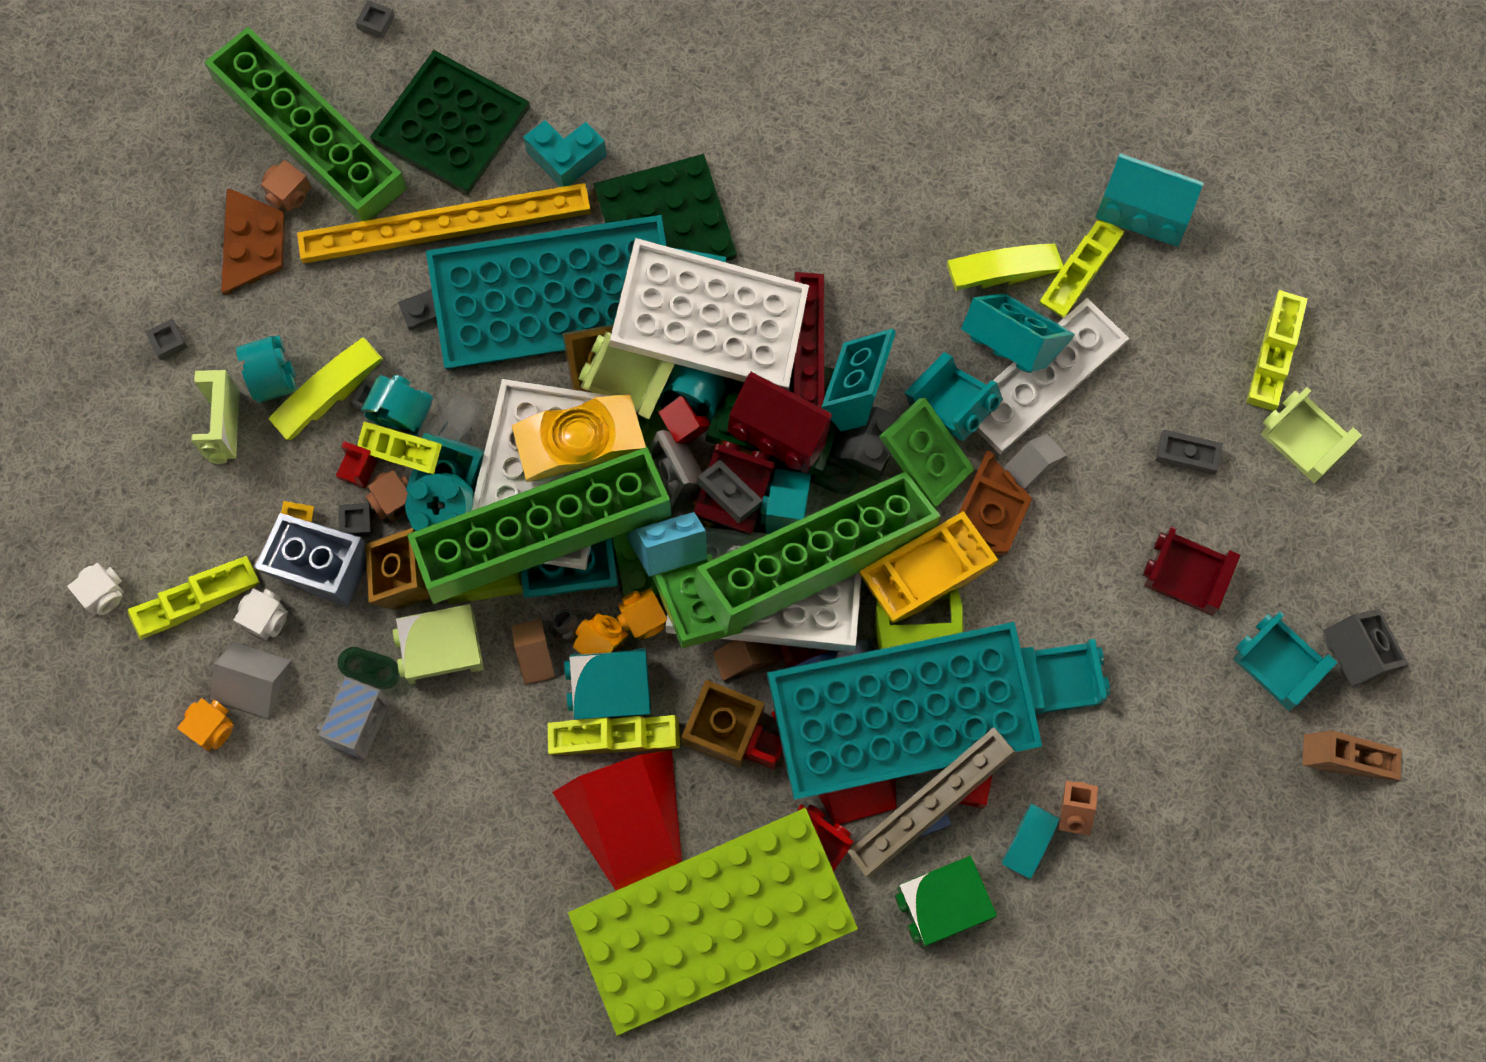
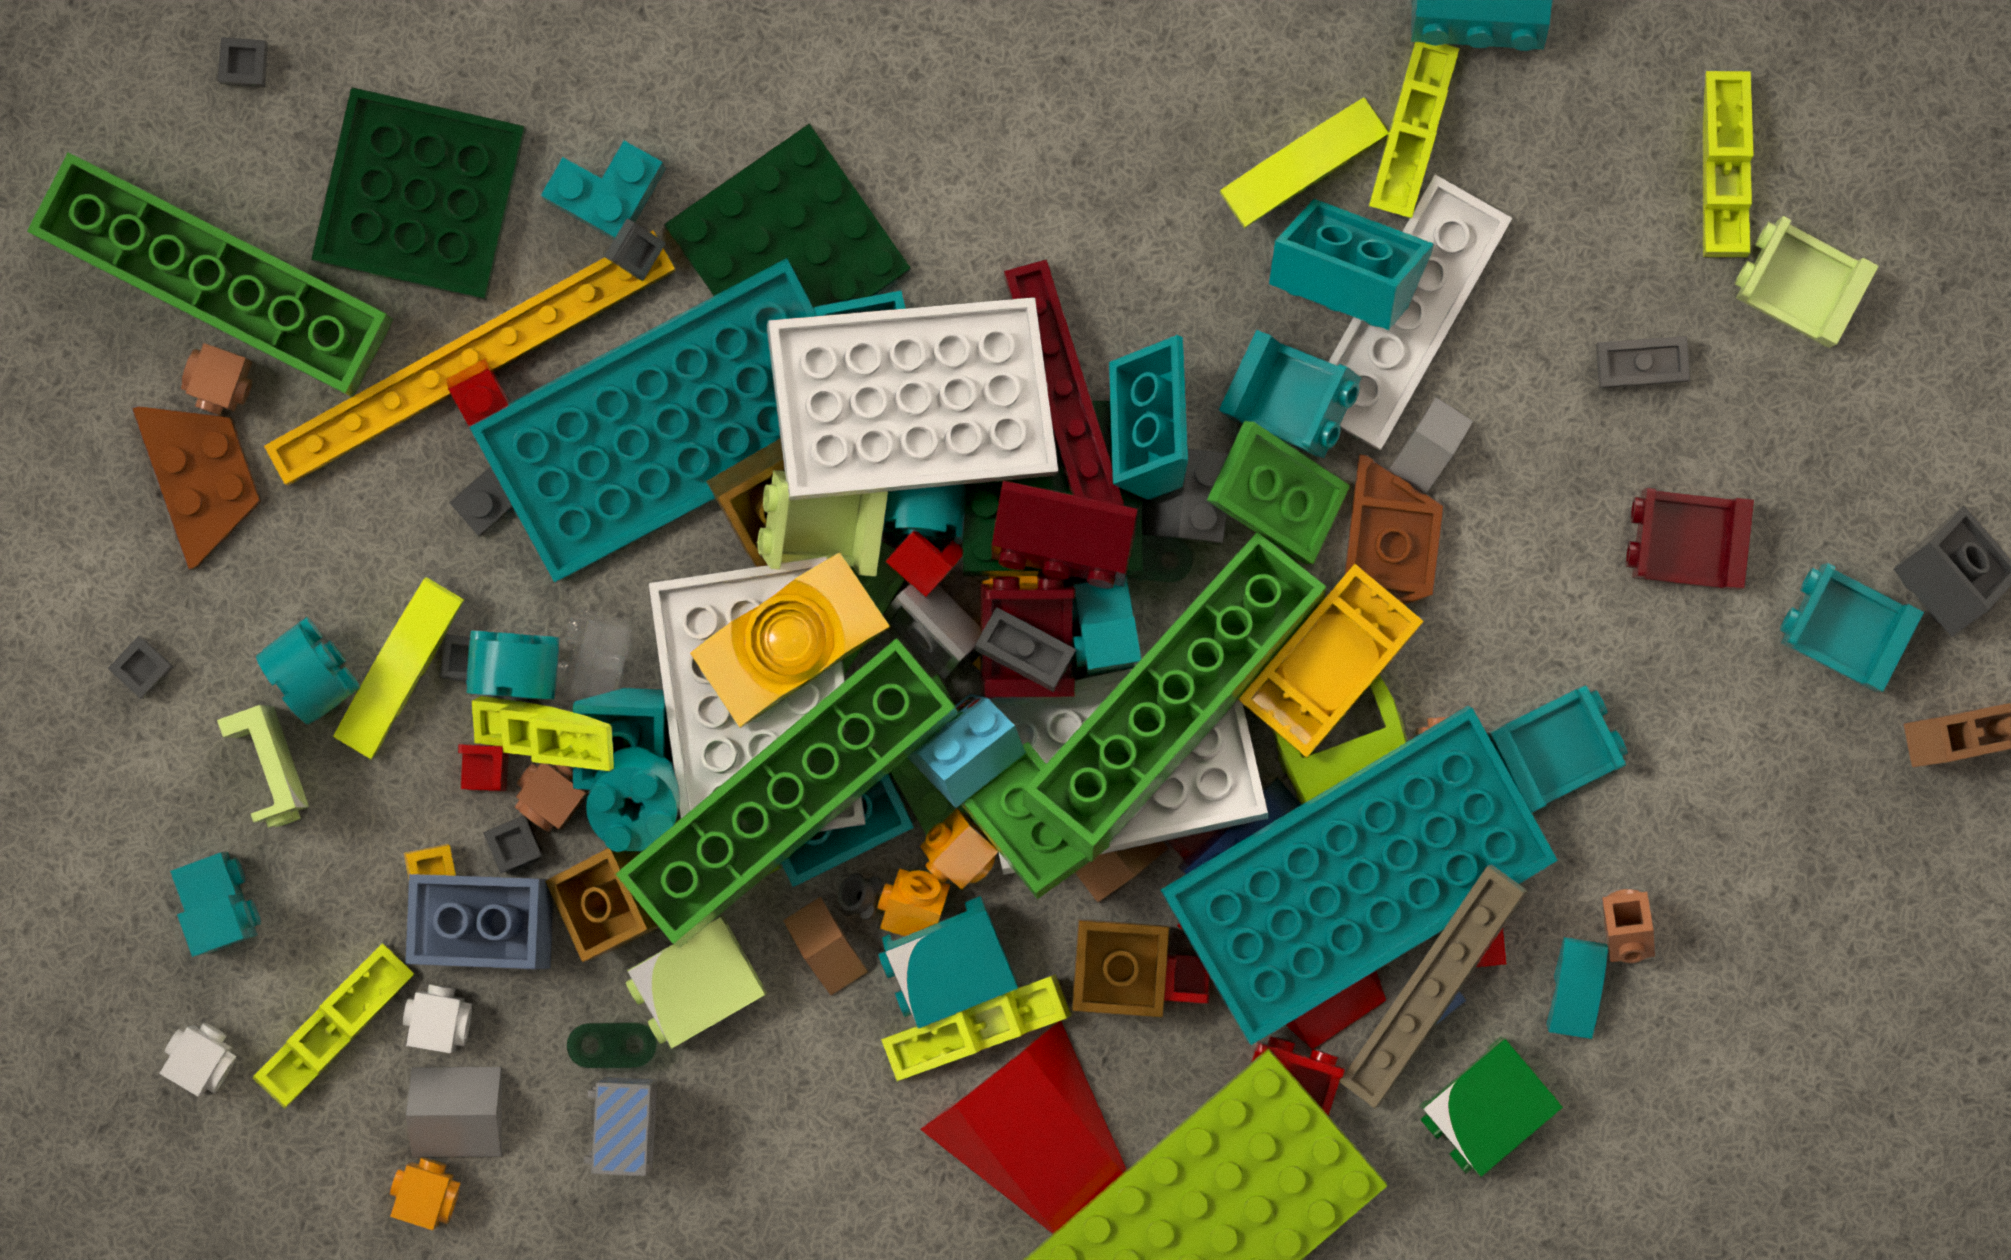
camera: 15 degrees left, 15 degrees up
(147, 495) = (214, 904): none -> teal brick
(438, 234) = (477, 392): none -> red brick
(569, 185) = (634, 249): none -> dark grey tile

